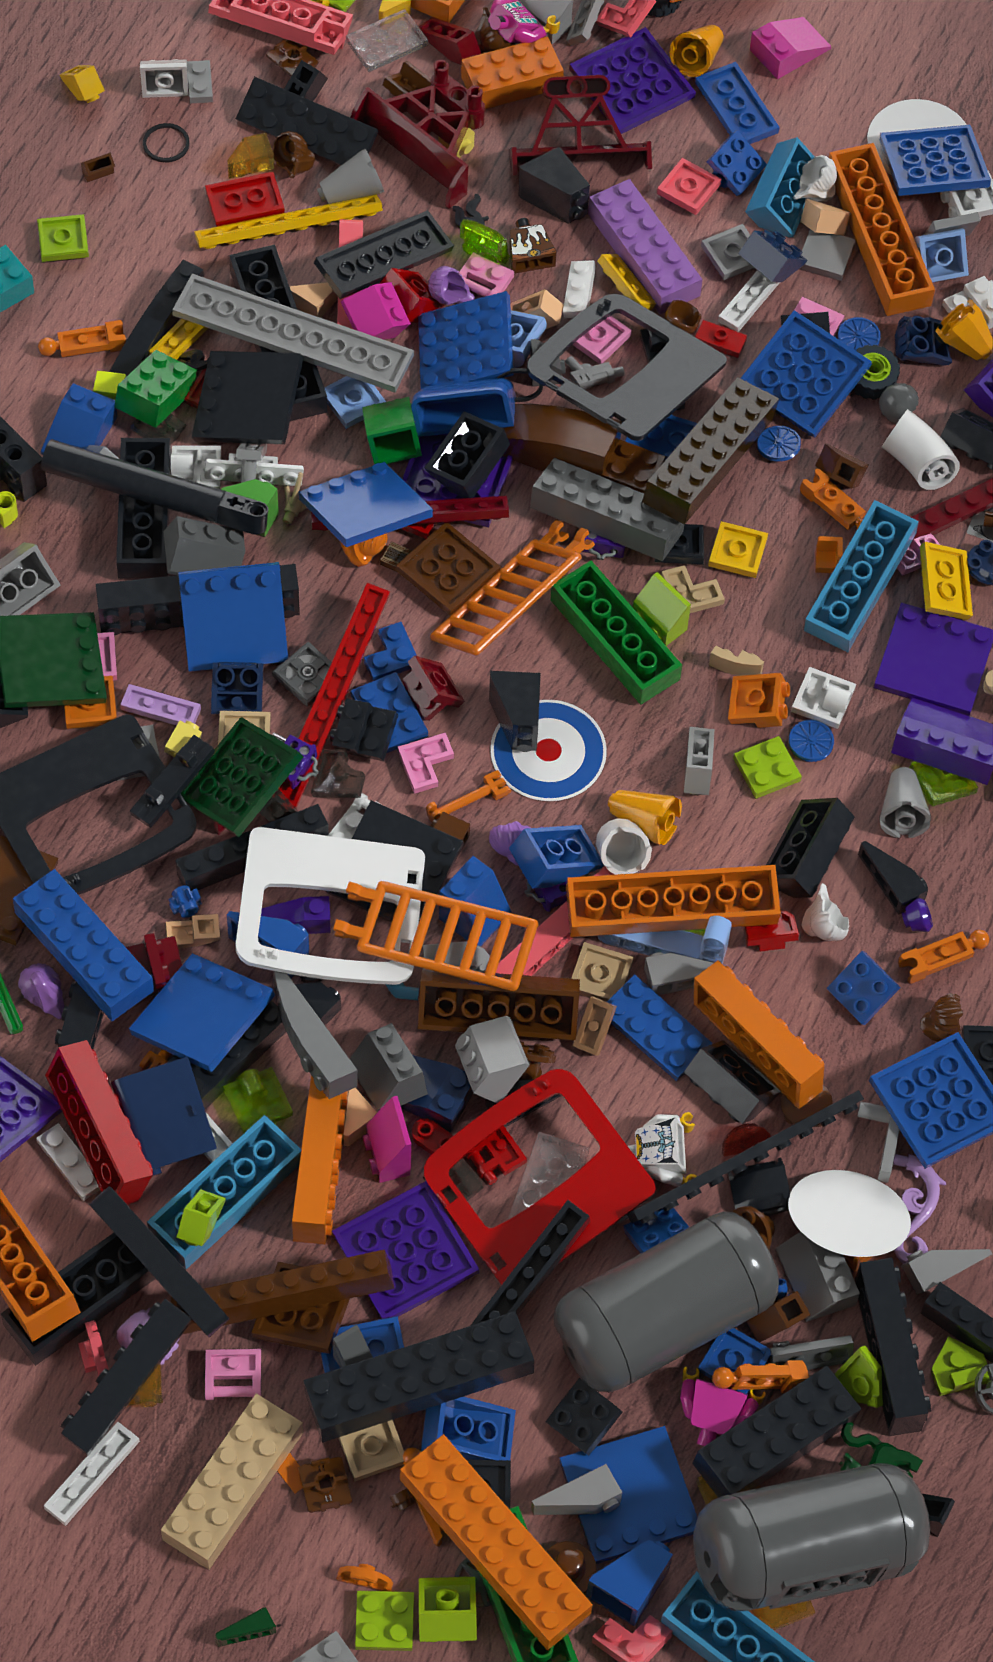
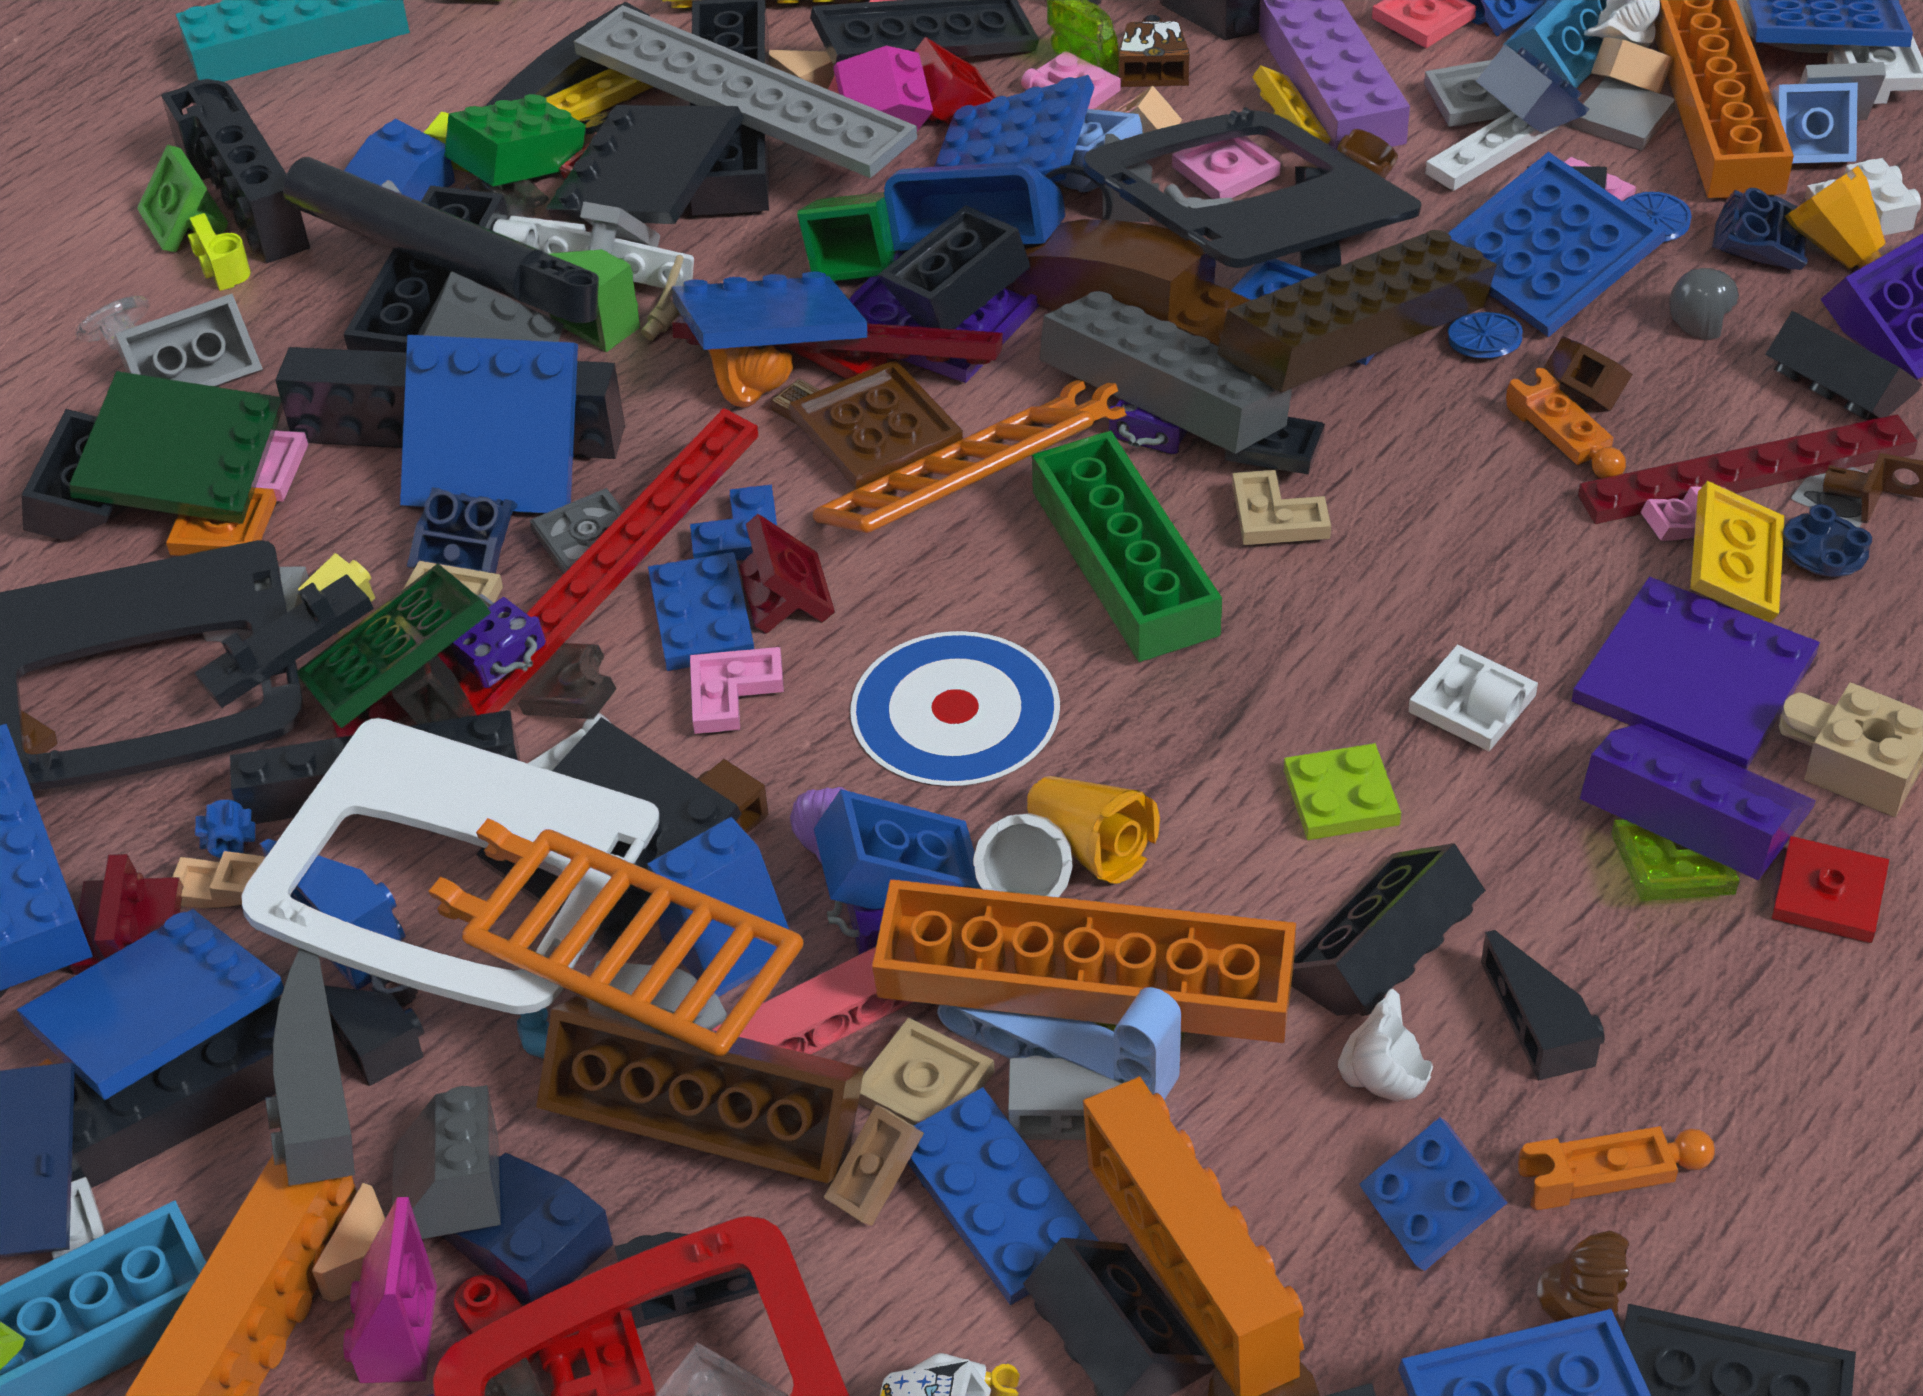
camera: 20 degrees right, 15 degrees down
(85, 340) = (446, 85): orange plate -> none
(159, 706) = (321, 538): lavender plate -> none
(255, 1096) = (199, 1170): clear neon green plate -> none
(309, 912) = (412, 875): dark purple slope -> none
(348, 397) = (803, 188): light blue tile -> none
(363, 729) = (641, 619): black plate -> none
(448, 286) = (1005, 70): medium lavender hair -> none
(490, 787) = (840, 743): orange hinge -> none
(492, 1057) = (638, 1178): light grey slope -> none
(516, 706) = (918, 621): black slope -> none
(535, 1057) = (723, 1198): reddish brown plate -> none
(579, 287) = (1218, 97): white plate -> none
(663, 609) = (1217, 520): lime slope -> none
(699, 761) = (1213, 761): light grey slope -> none
(721, 338) = (1437, 198): red plate -> none
(727, 662) = (1332, 626): tan slope -> none
(738, 549) = (1375, 464): yellow plate -> none
(759, 700) = (1352, 681): orange plate -> none
(772, 936) = (1274, 1067): red plate -> none
(811, 740) = (1434, 762): blue wheel -> none
(828, 553) = (1533, 489): orange panel -> none
(861, 576) = (1580, 519): dark azure brick -> none
(885, 368) = (1681, 252): black wheel -> none
(904, 805) = (1585, 890): light grey cone -> none
(918, 916) = (1574, 1083): dark purple cone -> none
(922, 452) = (1728, 365): white brick -> none

